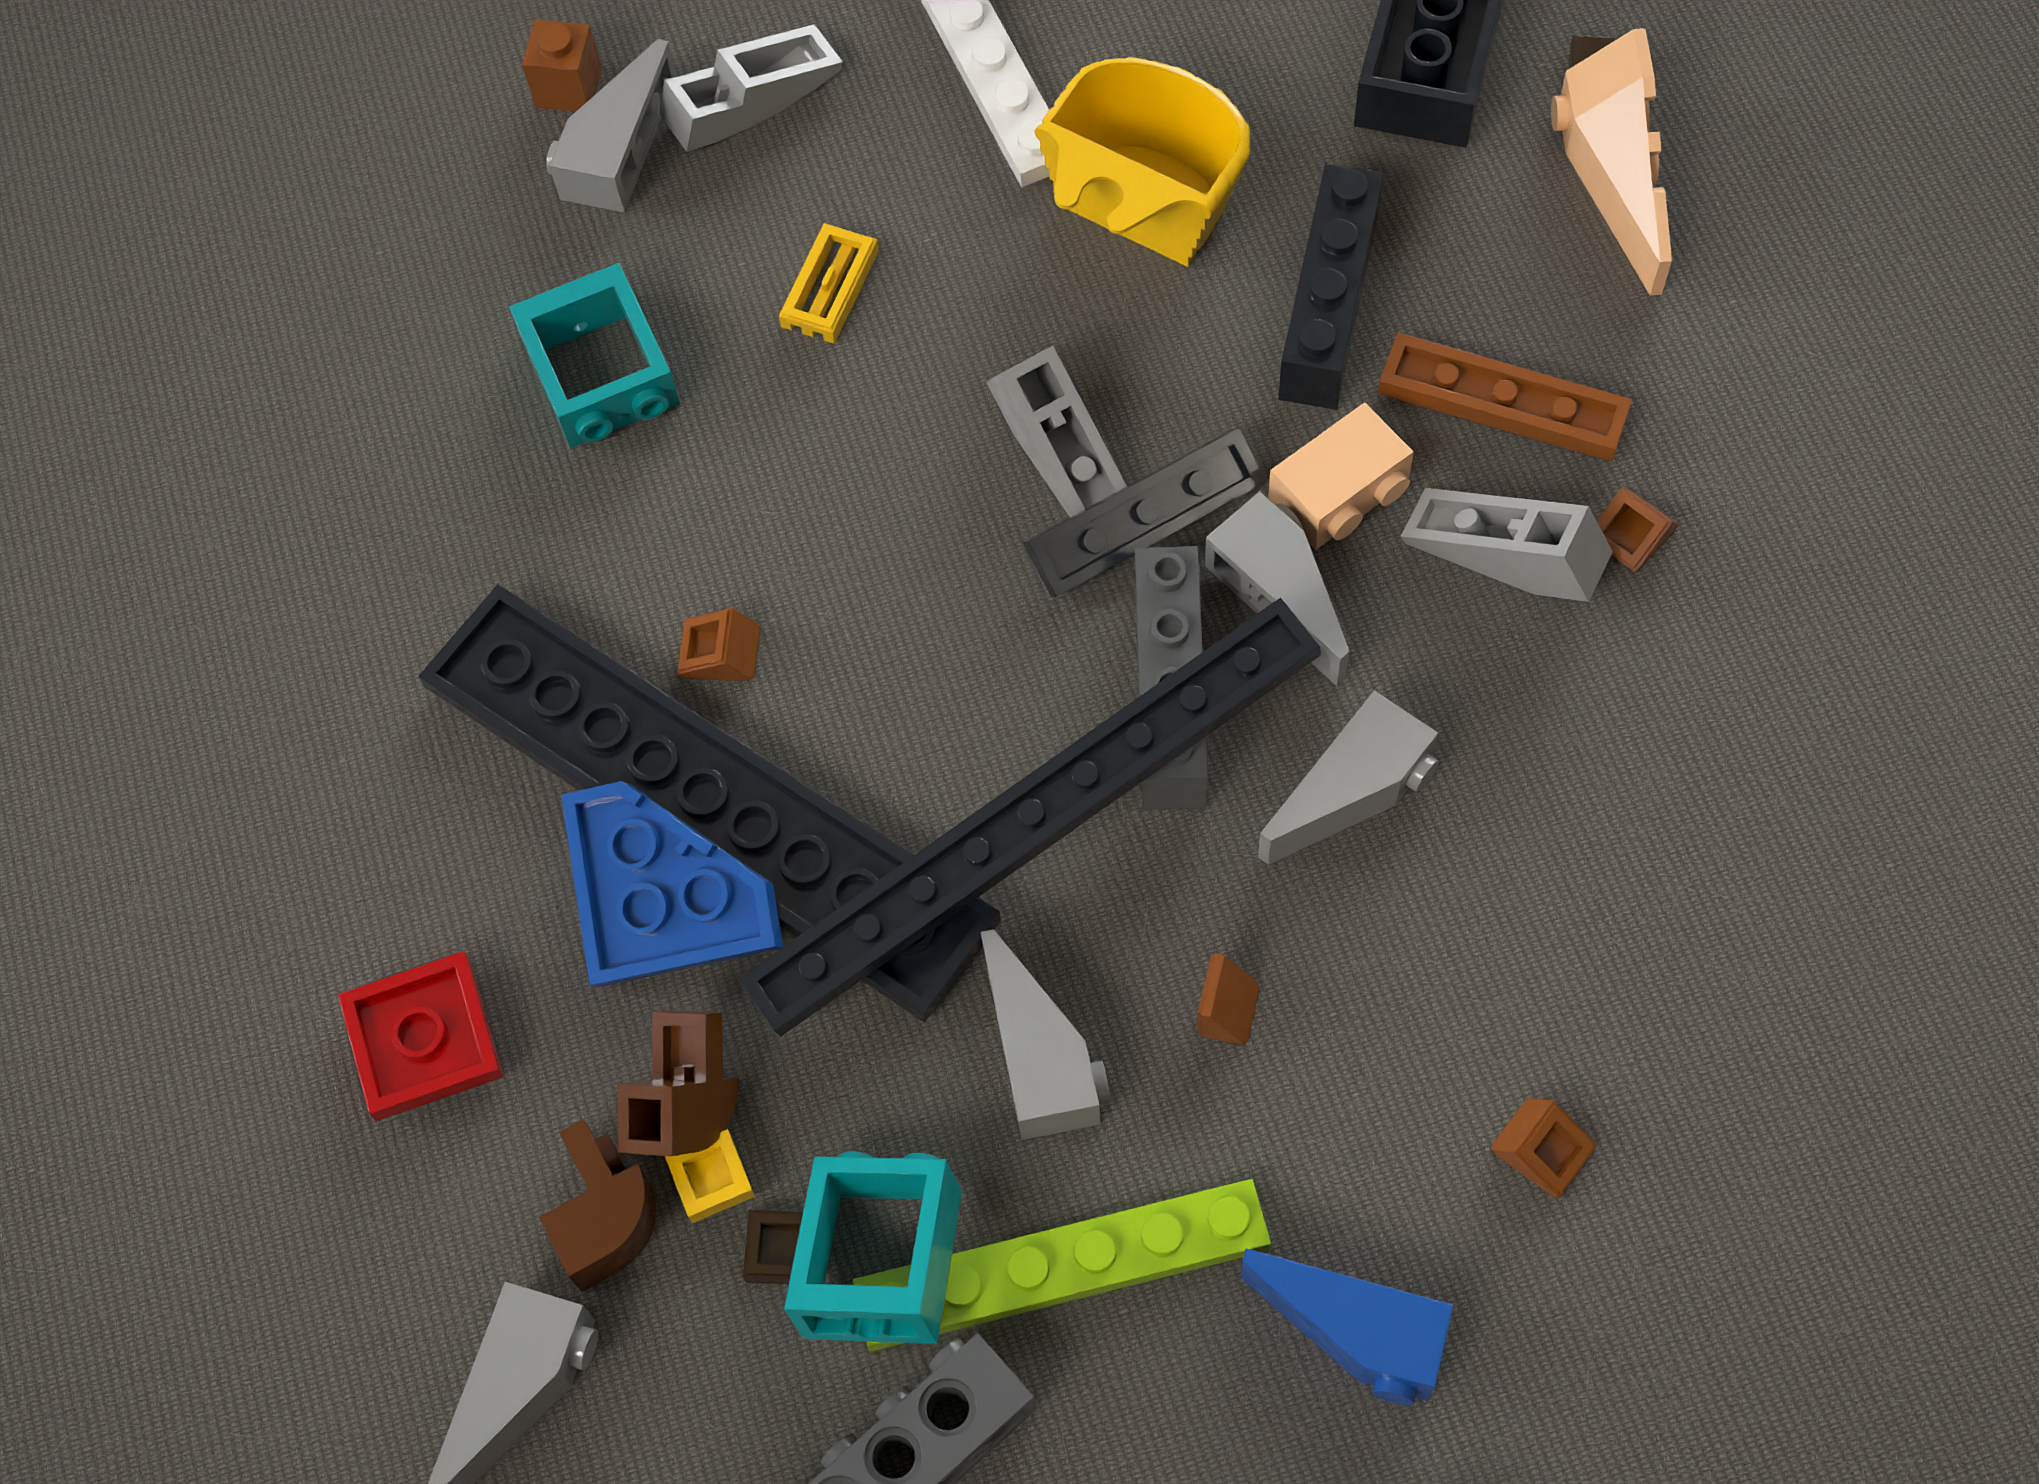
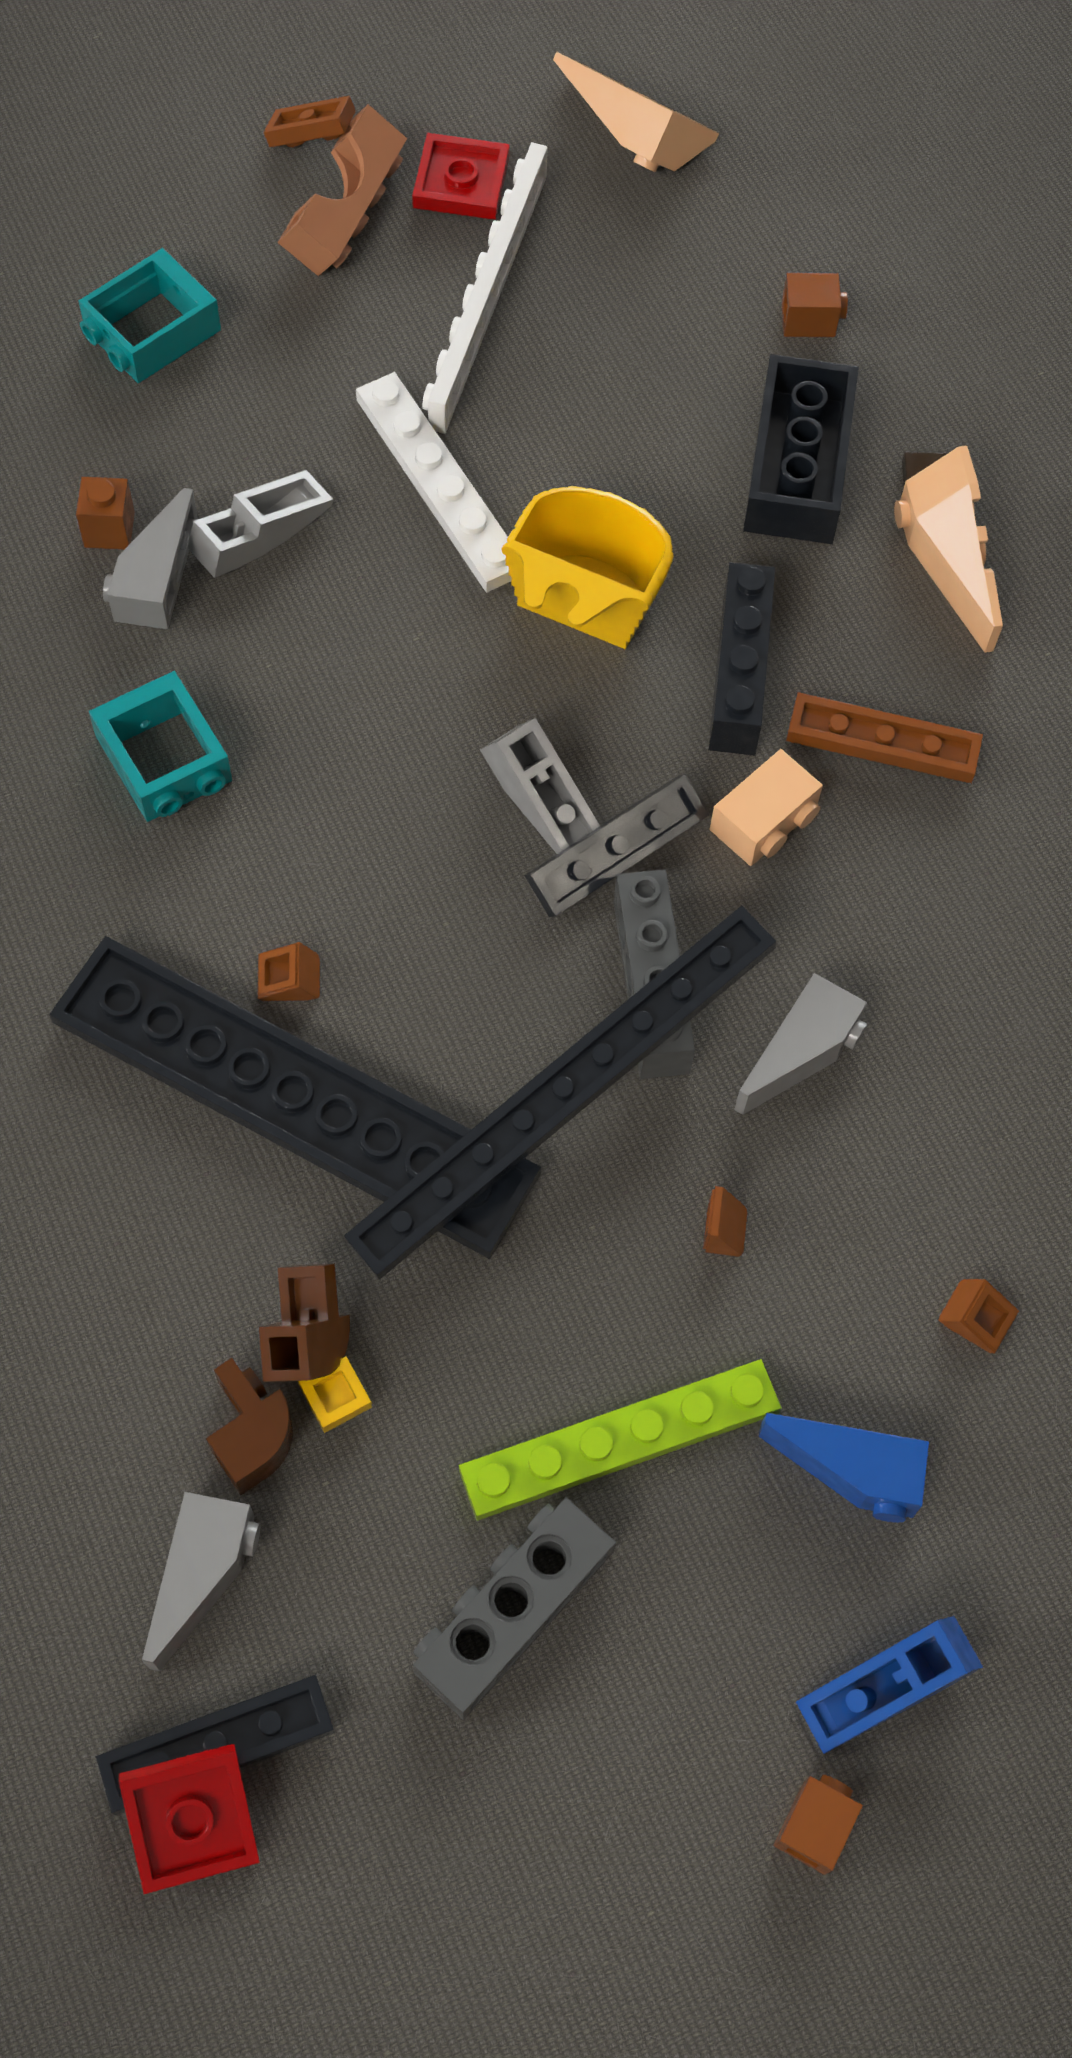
camera: 15 degrees left, 0 degrees up
(420, 1036) = (86, 1303): red plate -> none
(658, 890) = (268, 1171): blue plate -> none
(771, 1246) = (397, 1445): dark brown tile -> none
(847, 295) = (333, 708): yellow tile -> none
(875, 1312) = (486, 1487): teal window -> none
(1044, 1054) = (586, 1272): light grey slope -> none
(1265, 557) = (719, 879): light grey slope -> none
(1518, 541) = (904, 849): light grey slope -> none
(1634, 528) = (991, 835): dark orange slope -> none

